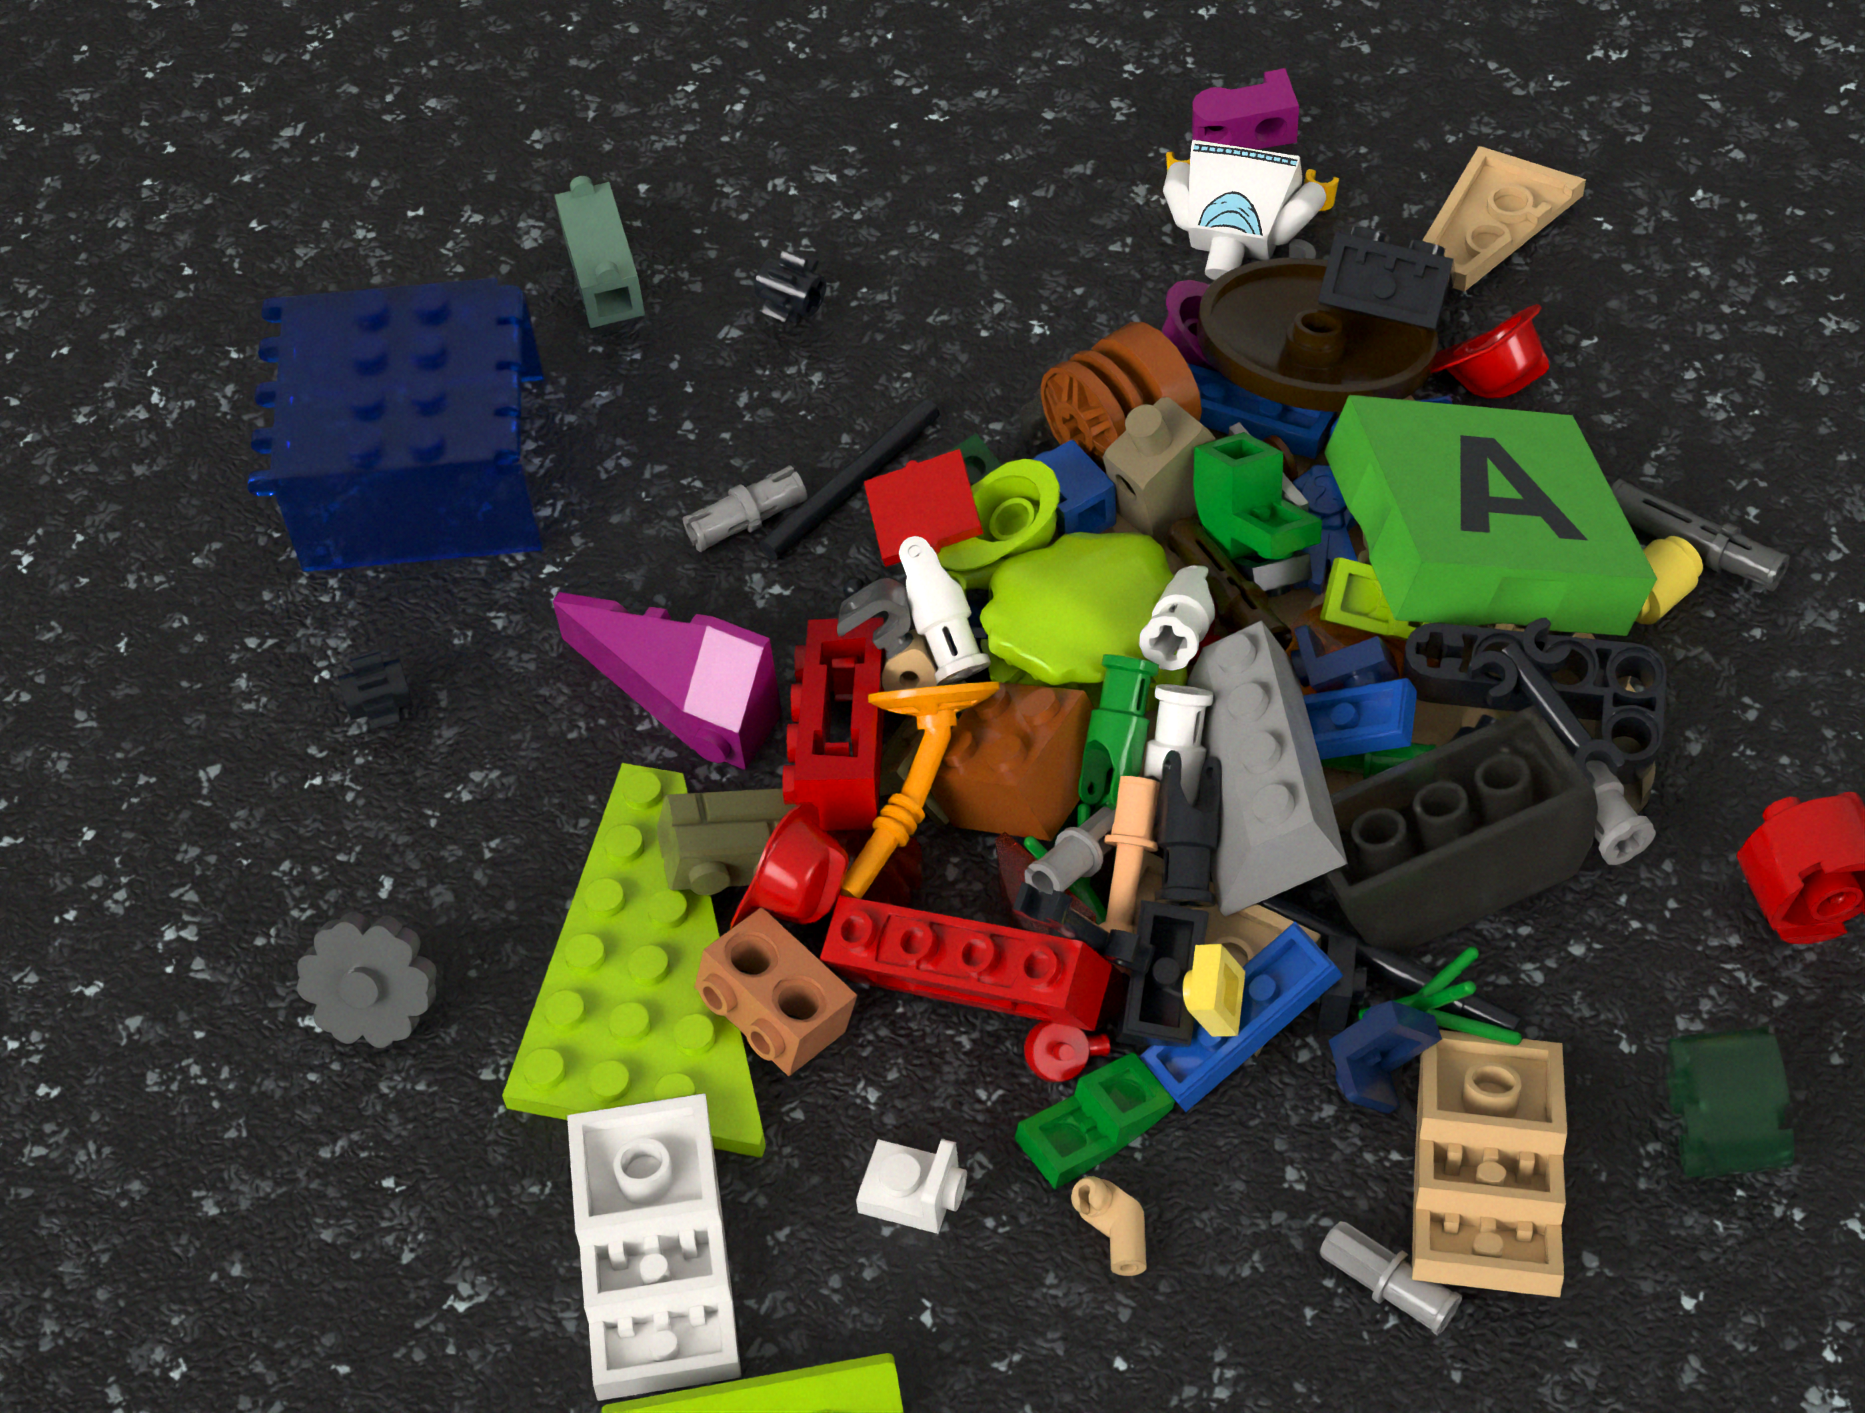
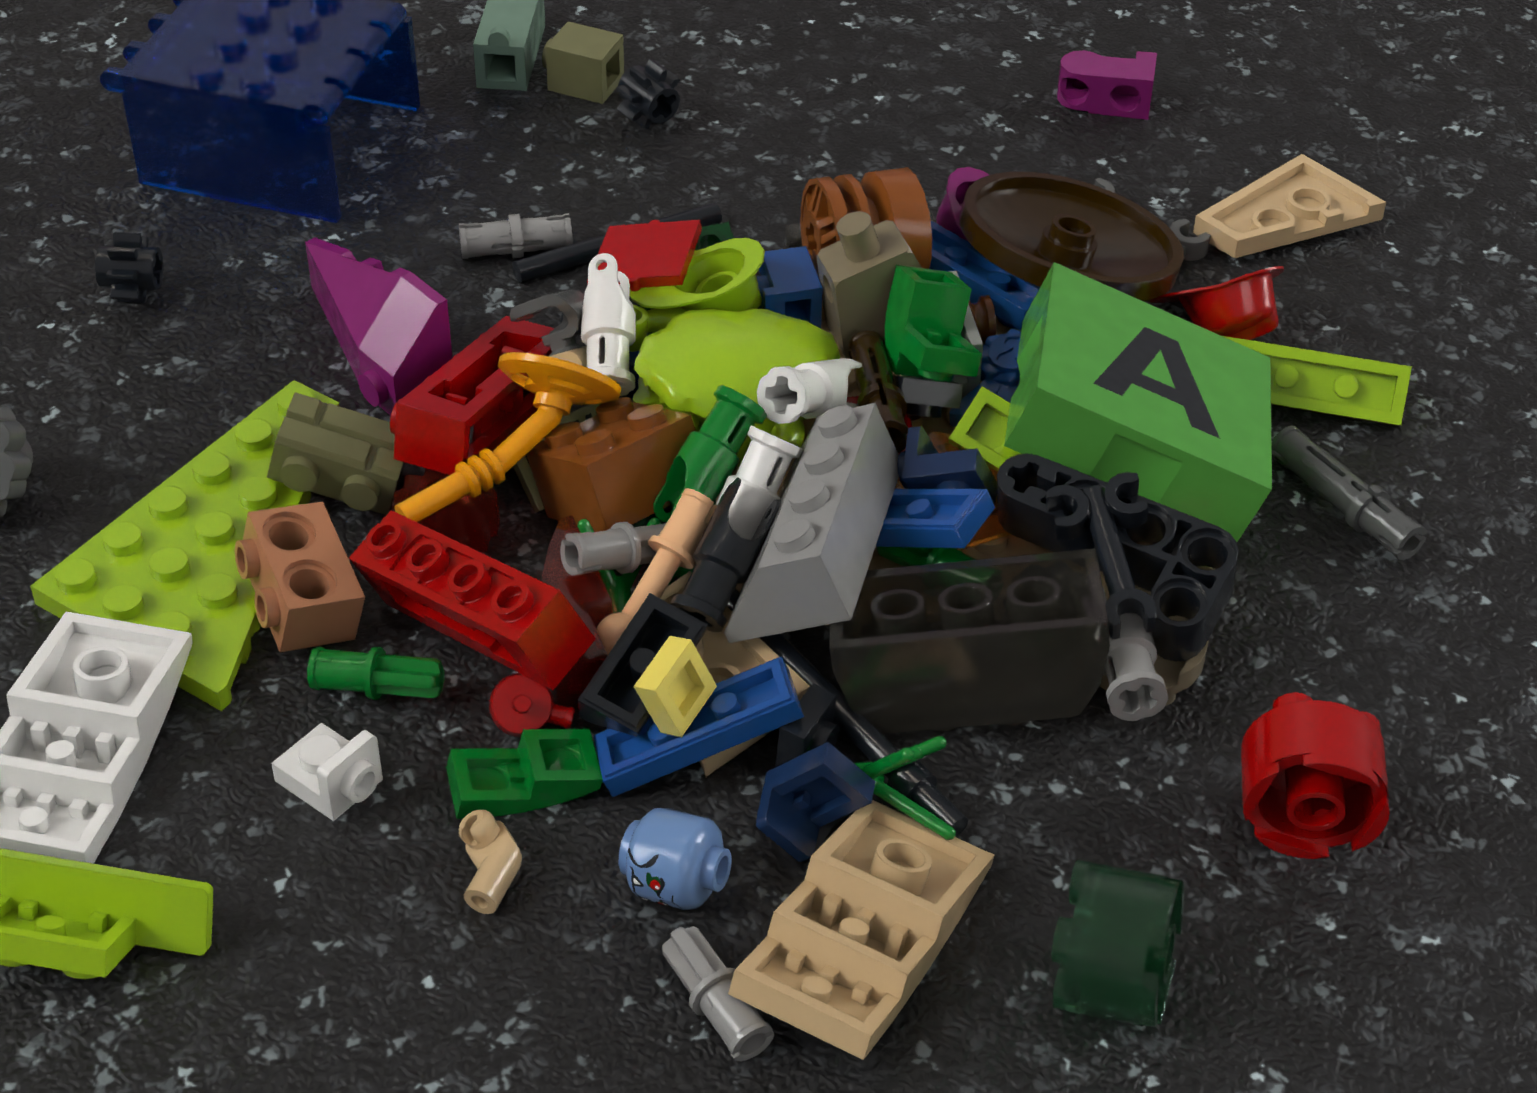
camera: 15 degrees right, 10 degrees down
(697, 265) = (584, 62): none -> olive brick
(797, 871) = (362, 475): red piece -> none
(899, 1066) = (375, 673): none -> green axle
(1064, 921) = (533, 541): black bar -> none
(1241, 201) = (1071, 131): white torso -> none
(1289, 1160) = (674, 858): none -> medium blue head
(1387, 279) = (1153, 208): black bracket -> none
(1621, 410) = (1335, 383): none -> lime fence
(1677, 574) = (1293, 514): light yellow brick -> none

